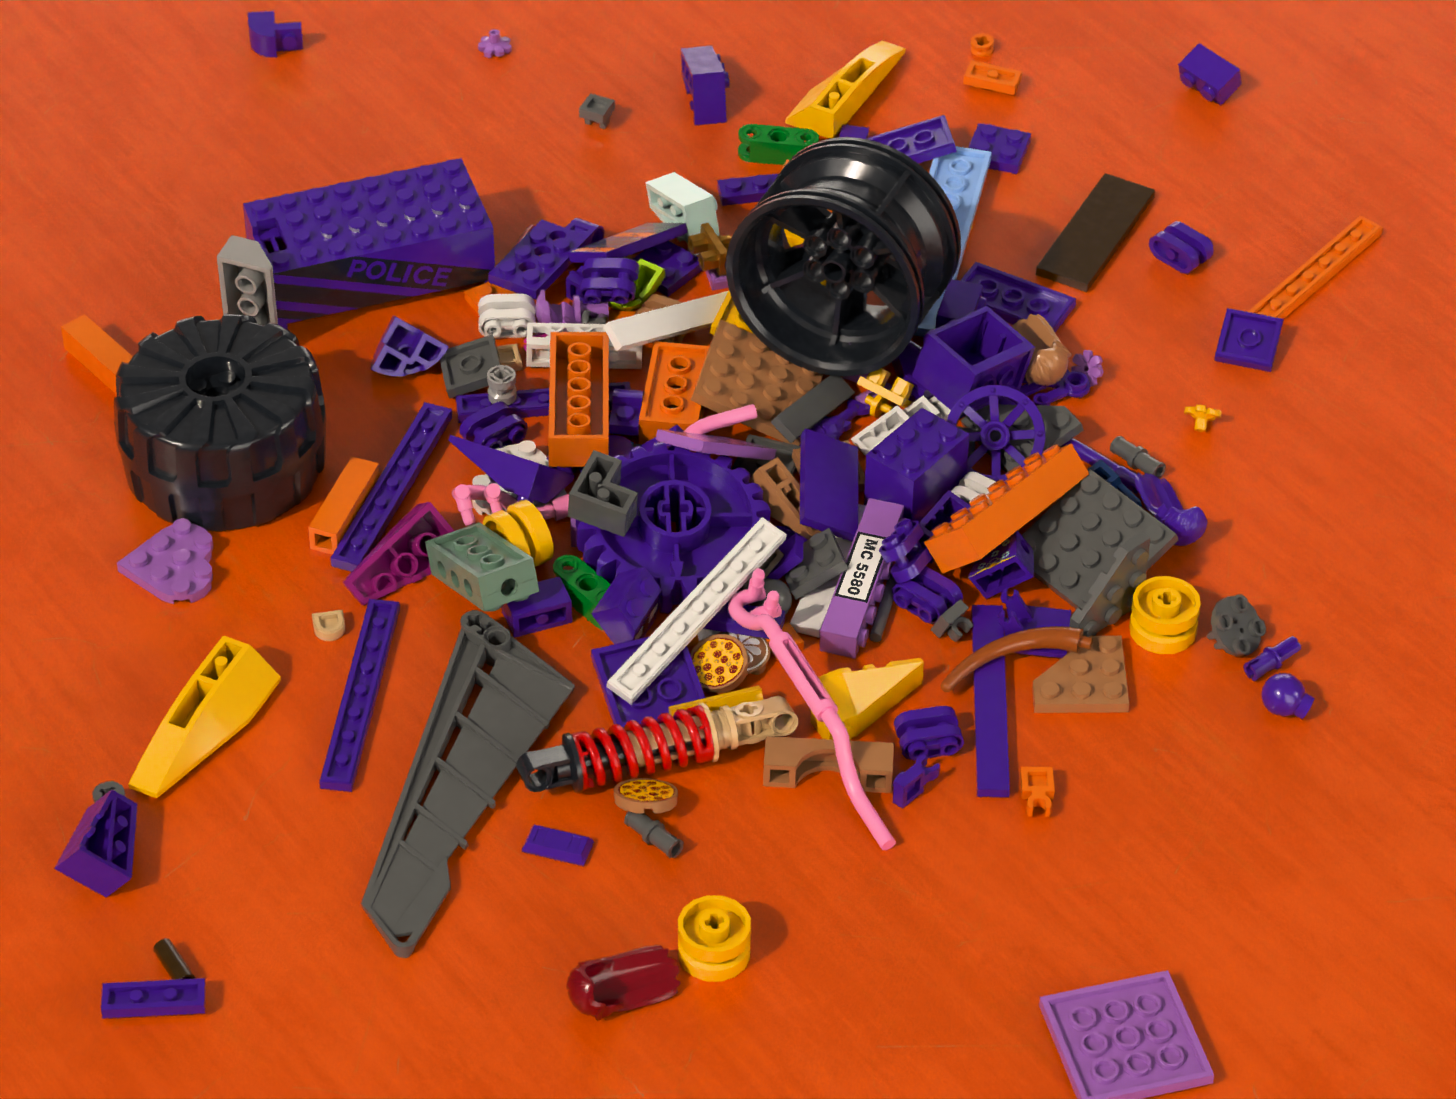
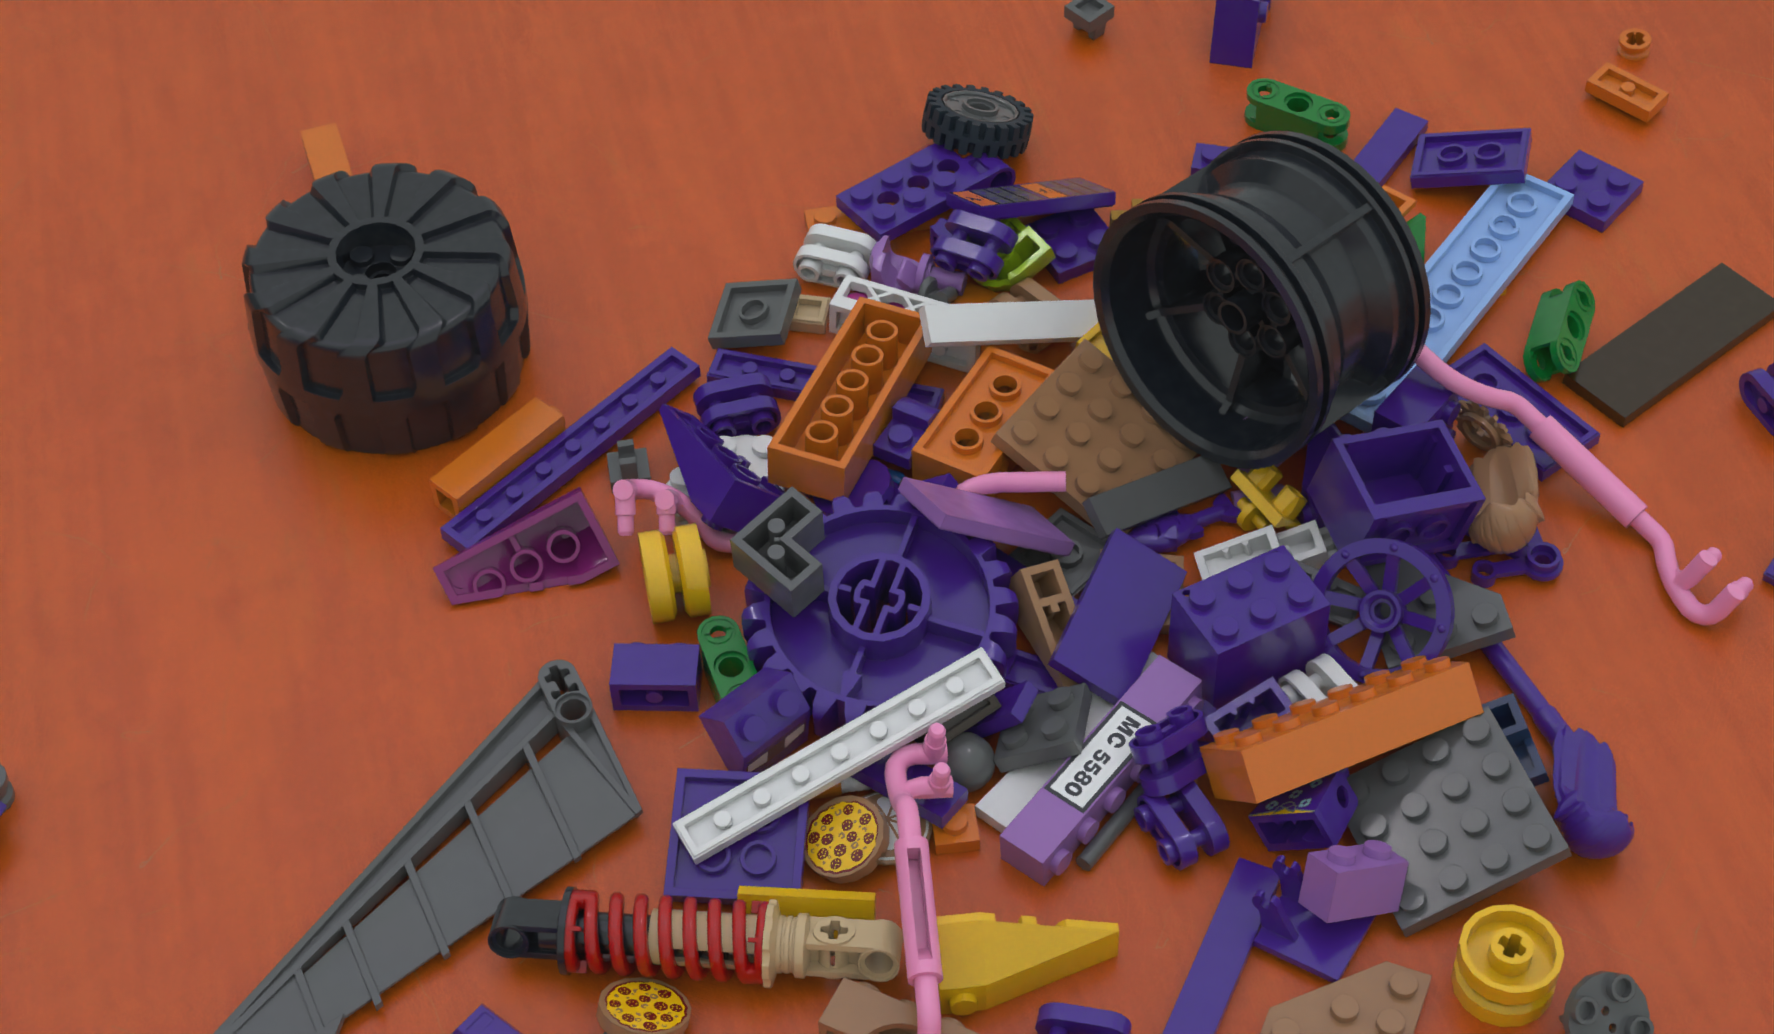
camera: 25 degrees right, 5 degrees up
(173, 563) = (259, 477): medium lavender plate -> none
(206, 714) = (165, 703): yellow wedge -> none
(247, 280) = (513, 148): light grey slope -> none
(329, 625) = (394, 620): tan tile -> none
(359, 696) = (373, 736): dark purple tile -> none
(373, 240) = (704, 116): dark purple piece -> none
(406, 350) = (687, 270): dark purple brick -> none
(436, 487) = (628, 463): none -> dark grey tile
(482, 567) = (599, 599): sand green brick -> none
(501, 384) = (773, 351): light grey wheel -> none
(560, 200) = (977, 121): none -> black wheel
(681, 201) = (1129, 161): light aqua wedge -> none
(845, 91) = (1416, 66): yellow wedge -> none
(951, 620) = (1196, 872): dark grey tile -> none
(1013, 312) = (1472, 418): none -> medium nougat gear
(1022, 241) = (1559, 331): none -> green piece
(1036, 638) = (1293, 942): dark orange animal -> none
(1053, 592) = (1353, 881): none -> medium lavender brick
(1089, 365) = (1571, 540): medium lavender plant -> none
(1096, 329) = (1604, 488): none -> bright pink piece
(1114, 591) = (1438, 910): dark grey plate -> none
(1137, 457) = (1581, 699): dark grey pin -> none
(1202, 415) = (1703, 662): yellow plant -> none

